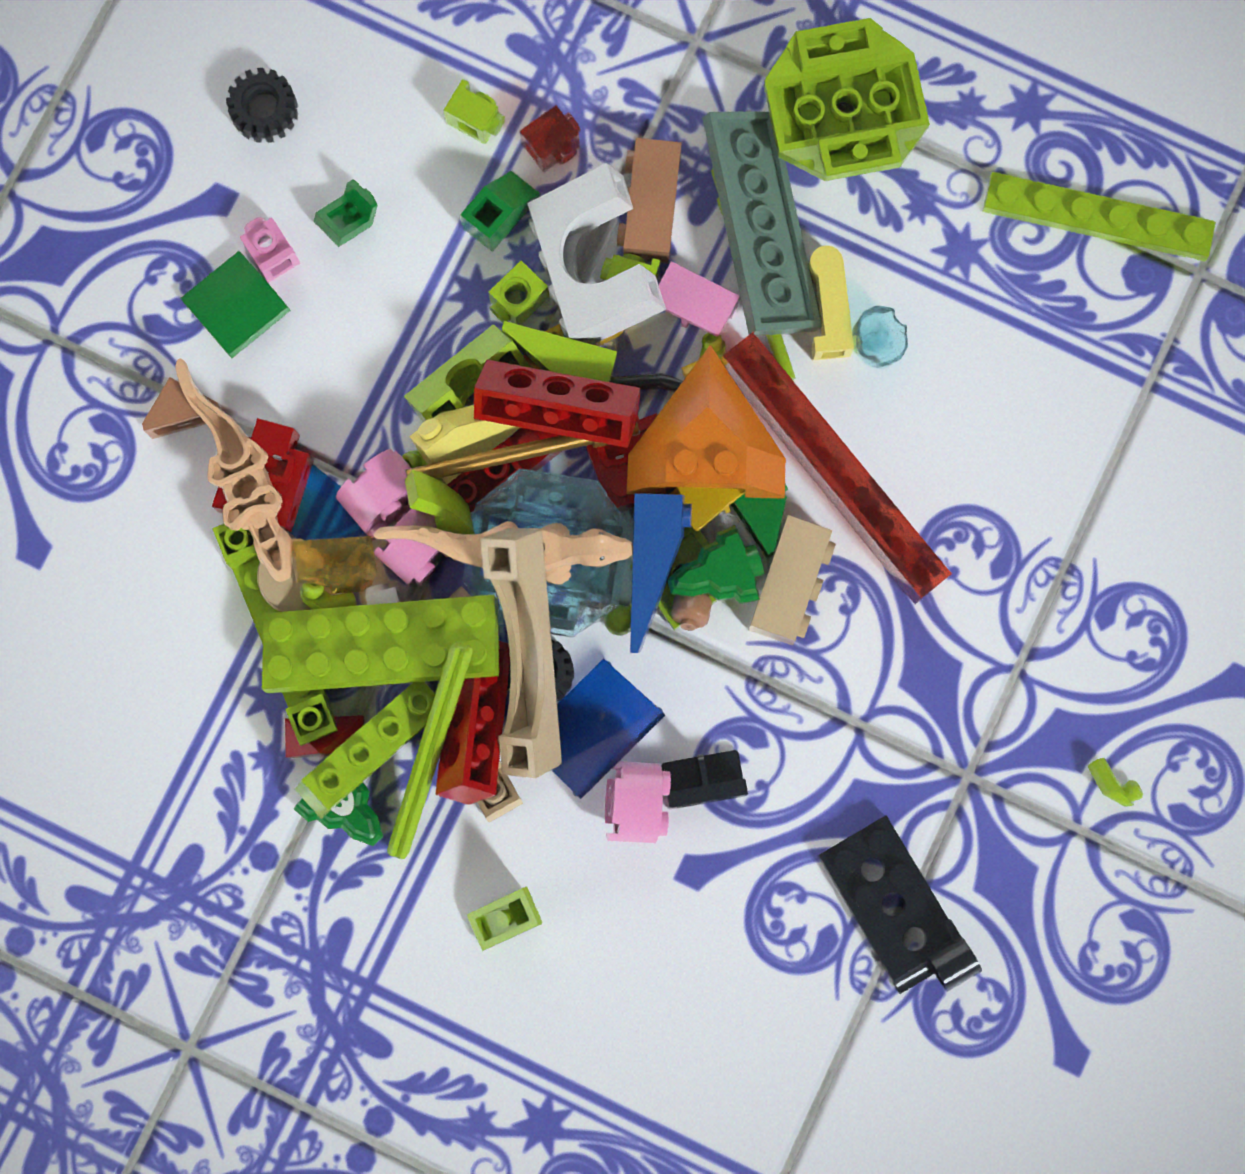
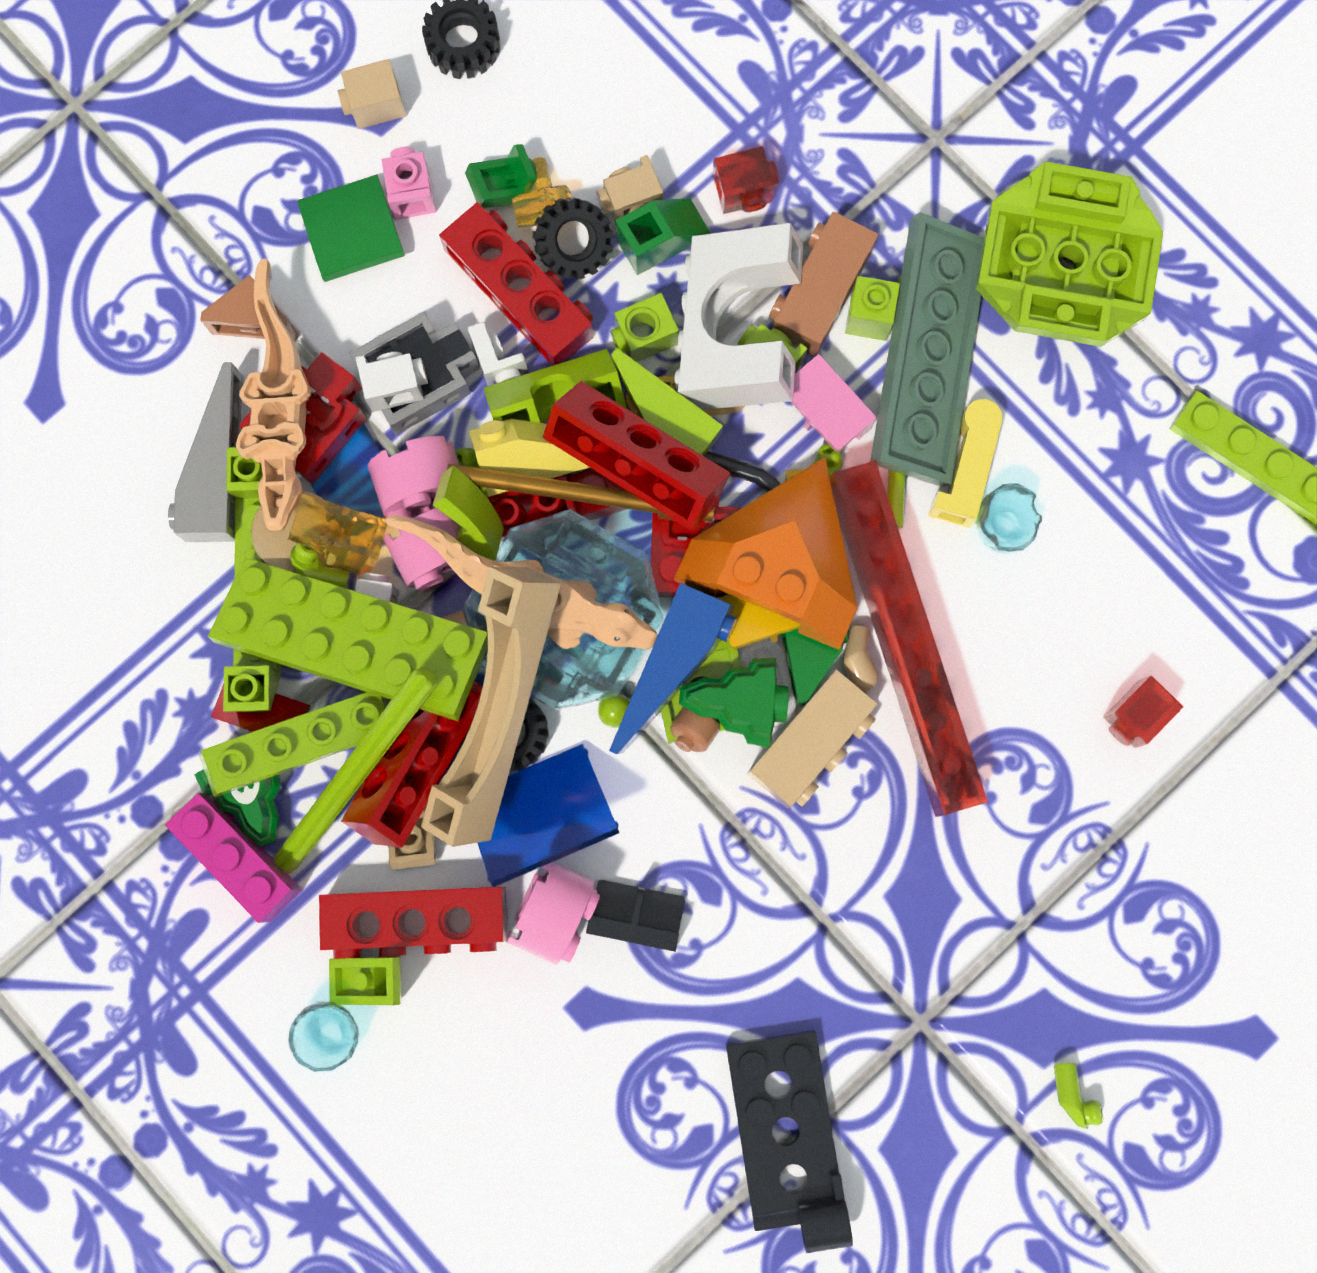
camera: 20 degrees right, 0 degrees up
(205, 575) = (201, 504): none -> light grey slope
(207, 184) = (371, 94): none -> tan brick
(329, 418) = (391, 380): none -> white brick
(340, 403) = (445, 360): none -> piece
(350, 262) = (480, 230): none -> red brick
(355, 862) = (233, 858): none -> dark pink brick
(391, 221) = (531, 204): none -> clear yellow piece
(395, 365) = (489, 351): none -> white bracket
(450, 246) = (598, 244): none -> black tyre
(459, 184) = (629, 189): none -> tan brick
(463, 869) = (341, 915): none -> red brick
(473, 113) = (673, 124): lime brick -> none
(488, 977) = (323, 1036): none -> clear light blue hair
(699, 206) = (872, 308): none -> lime brick
(801, 501) = (858, 661): none -> tan arm
(1048, 454) = (1142, 713): none -> clear red brick

